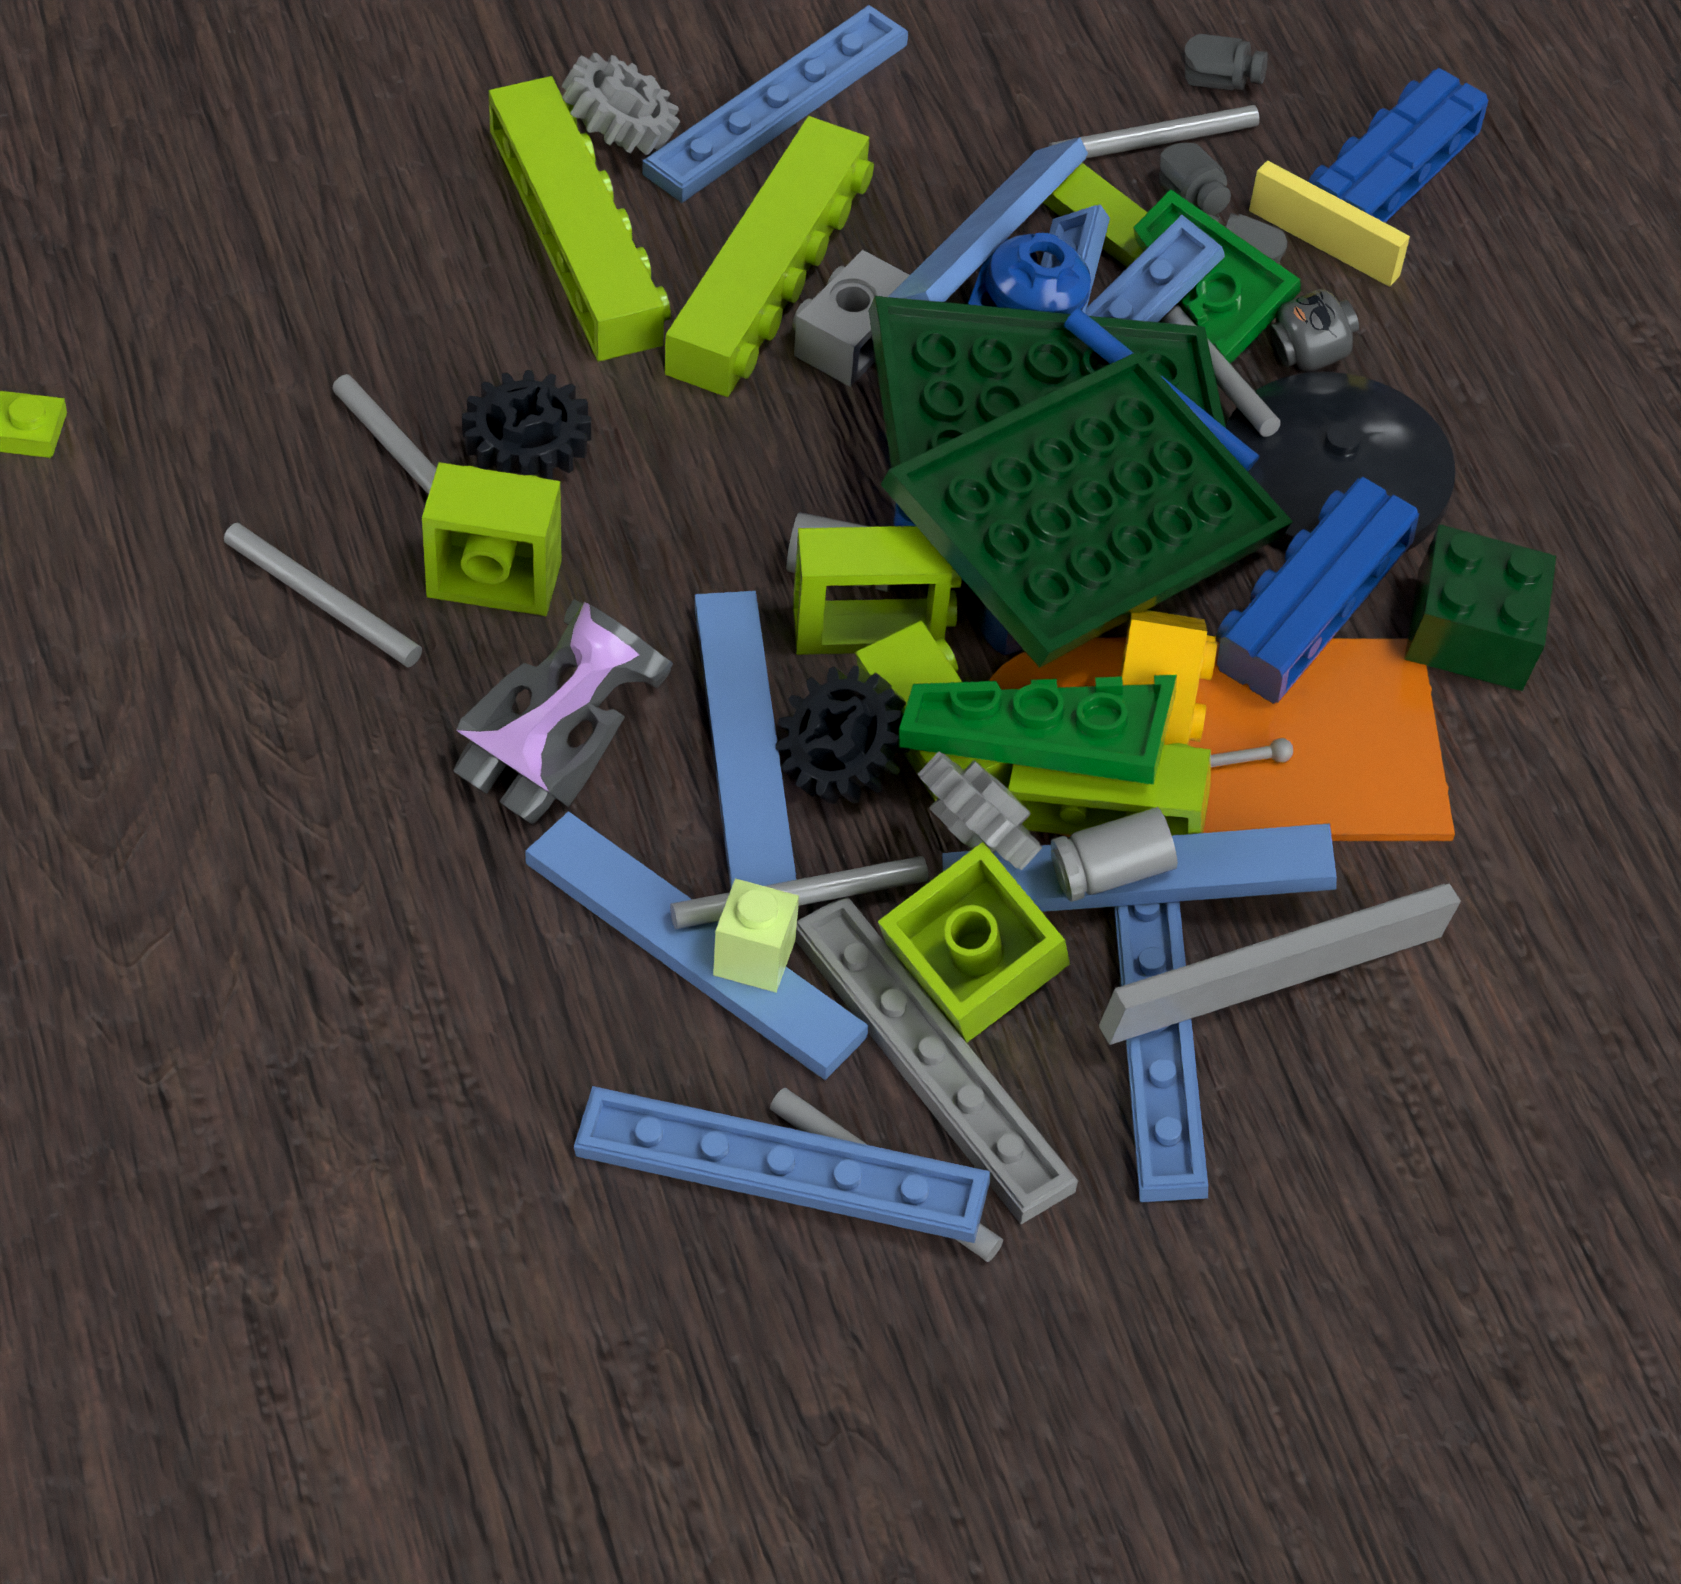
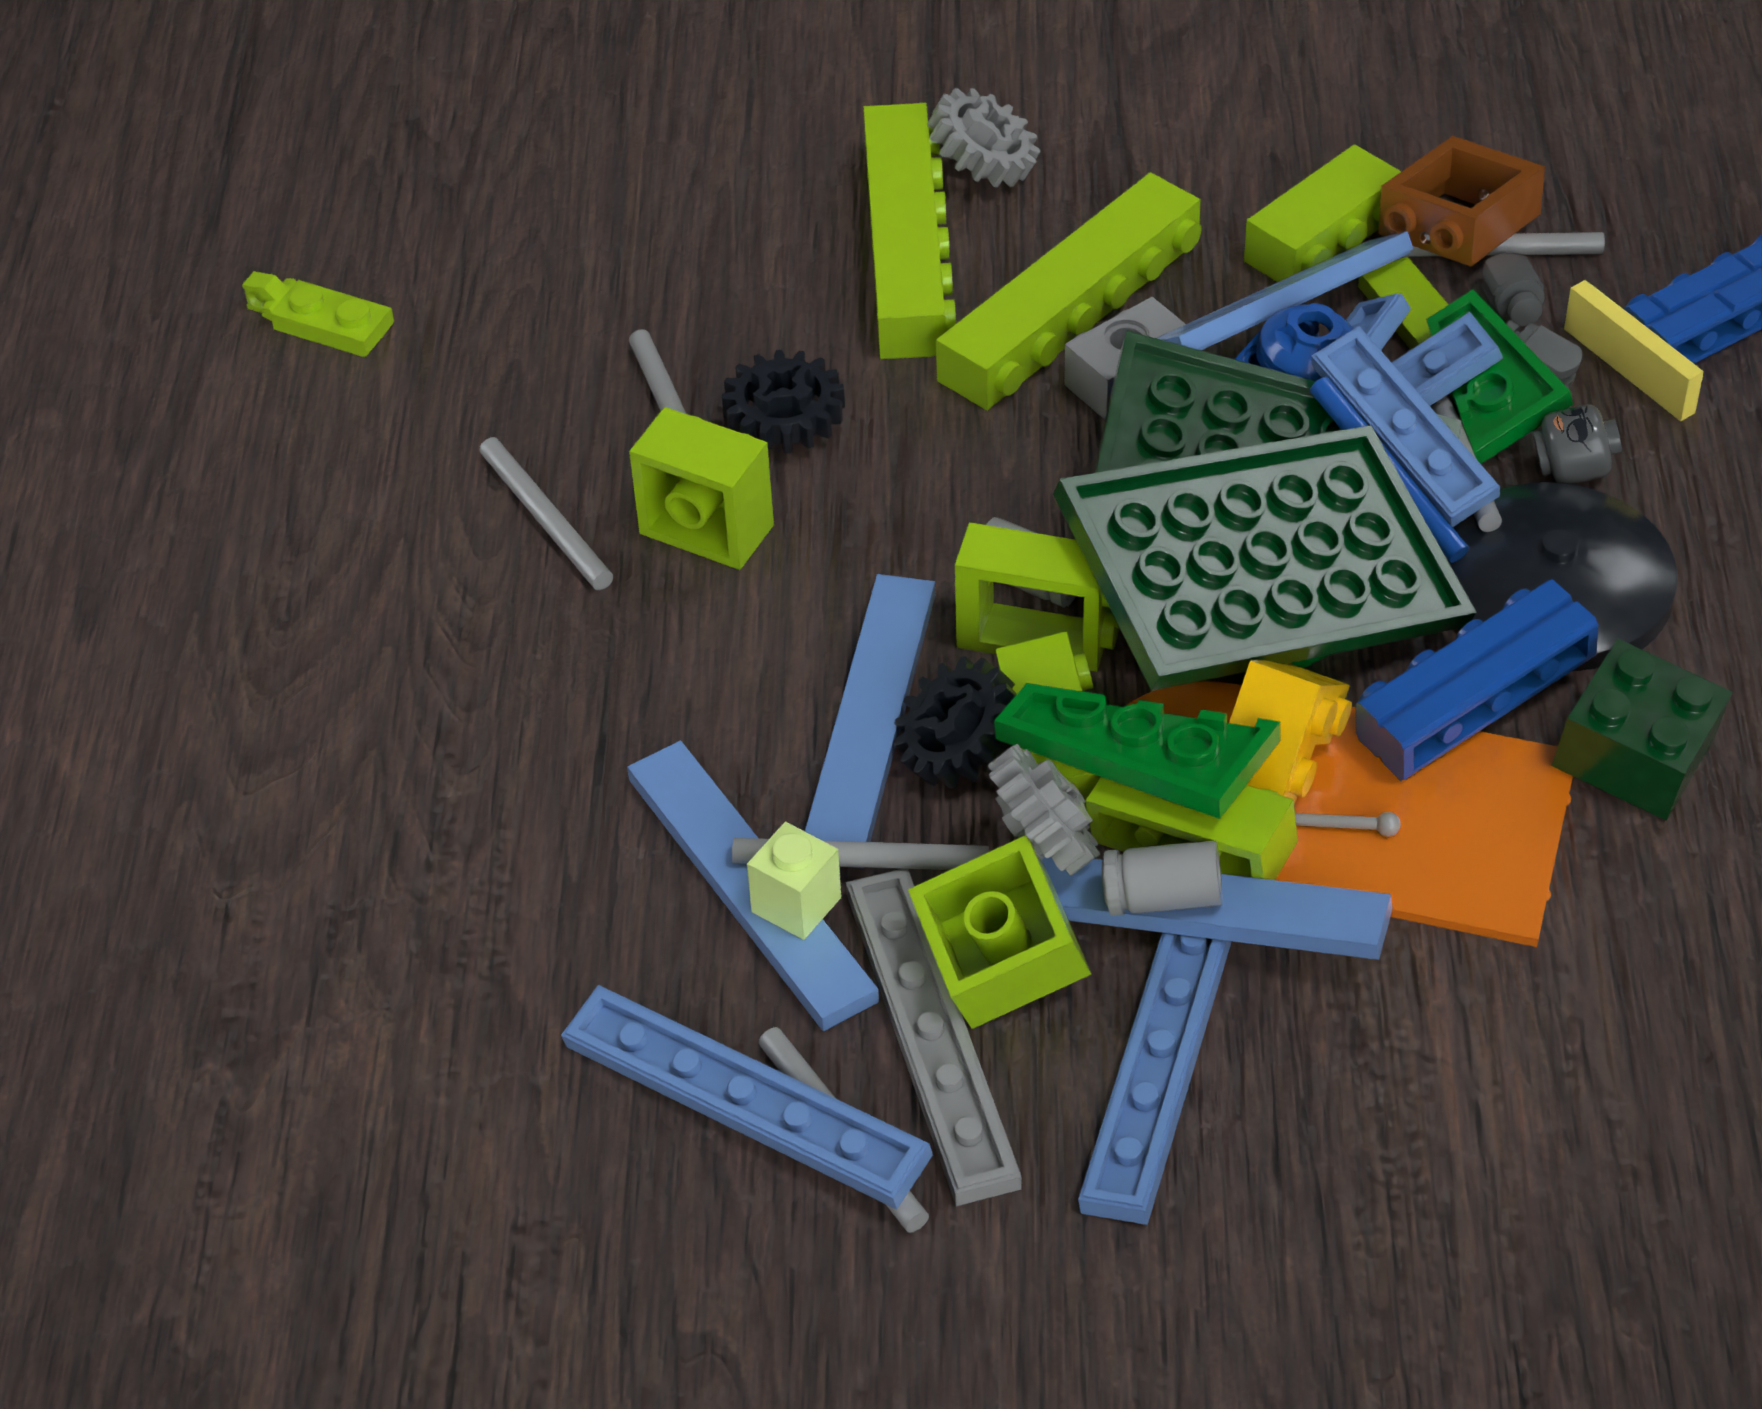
camera: 25 degrees right, 5 degrees down
(537, 739) = (676, 667): dark grey hips -> none
(774, 103) = (1121, 165): medium blue tile -> none
(988, 133) = (1319, 215): none -> lime brick
(1125, 68) = (1500, 184): none -> dark orange window
(1167, 342) = (1407, 426): none -> medium blue tile
(1223, 62) = (1587, 189): dark grey arm -> none
(1277, 963) = (1296, 1016): light grey tile -> none

